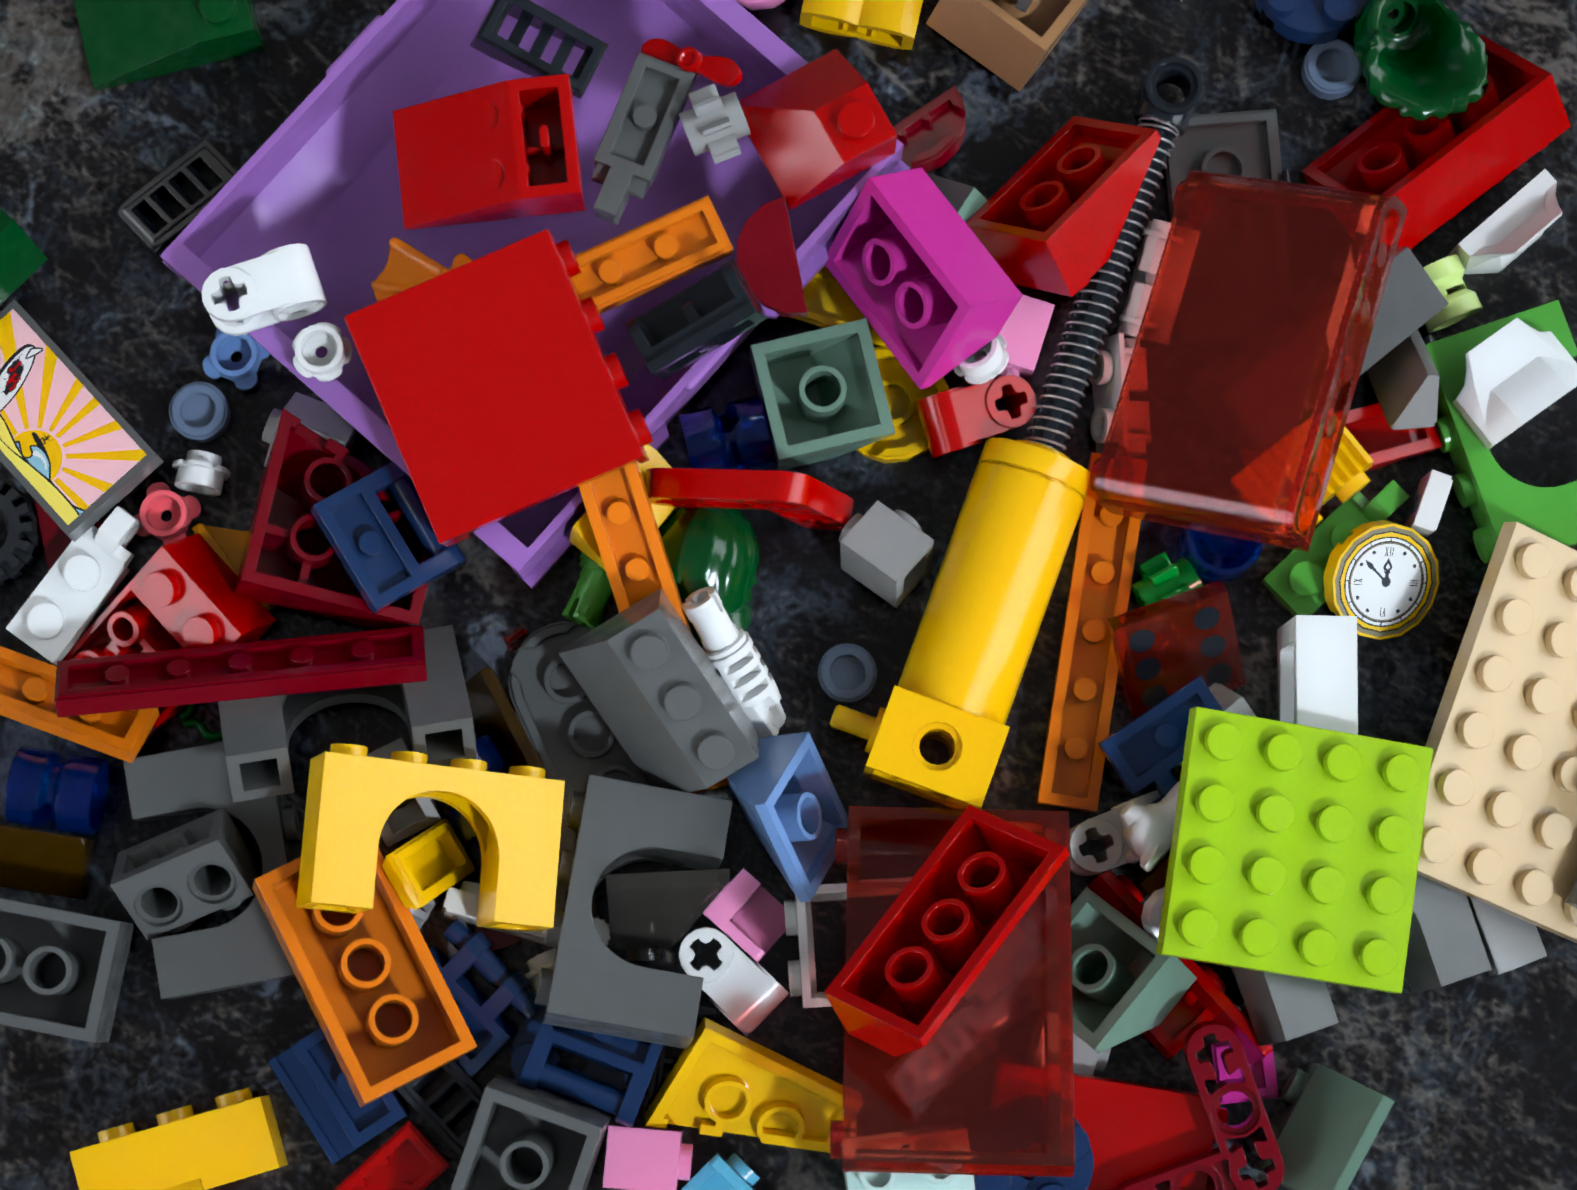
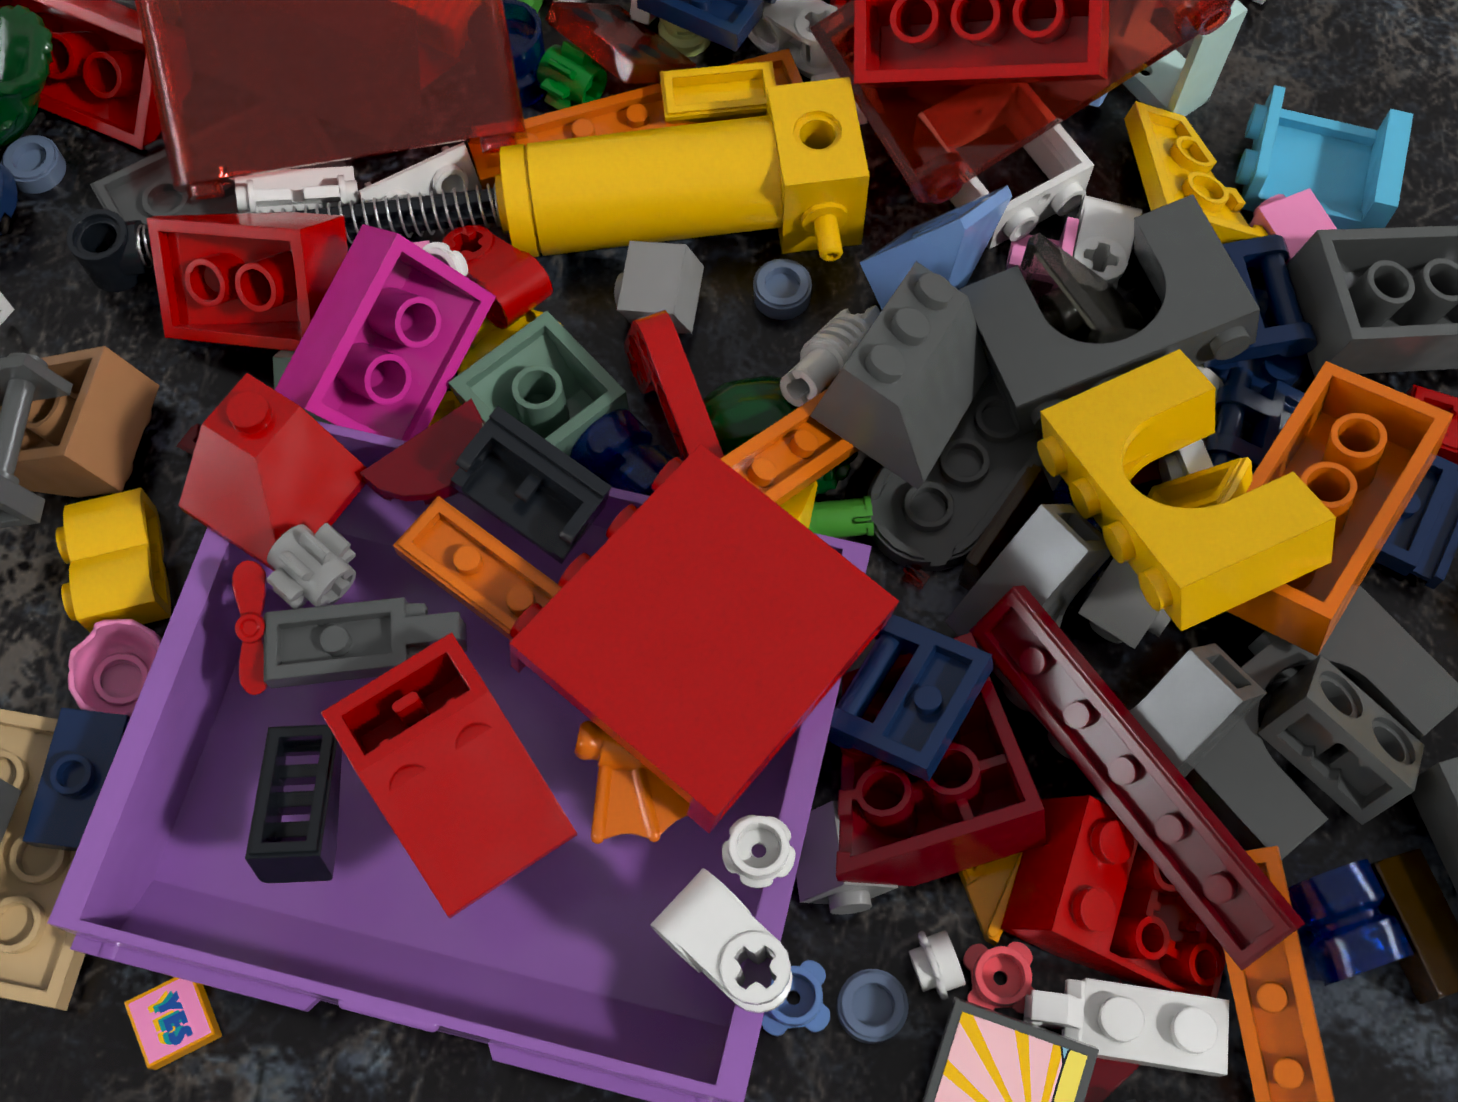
camera: 115 degrees left, 15 degrees down
(1068, 711) = (716, 92): none -> yellow tile

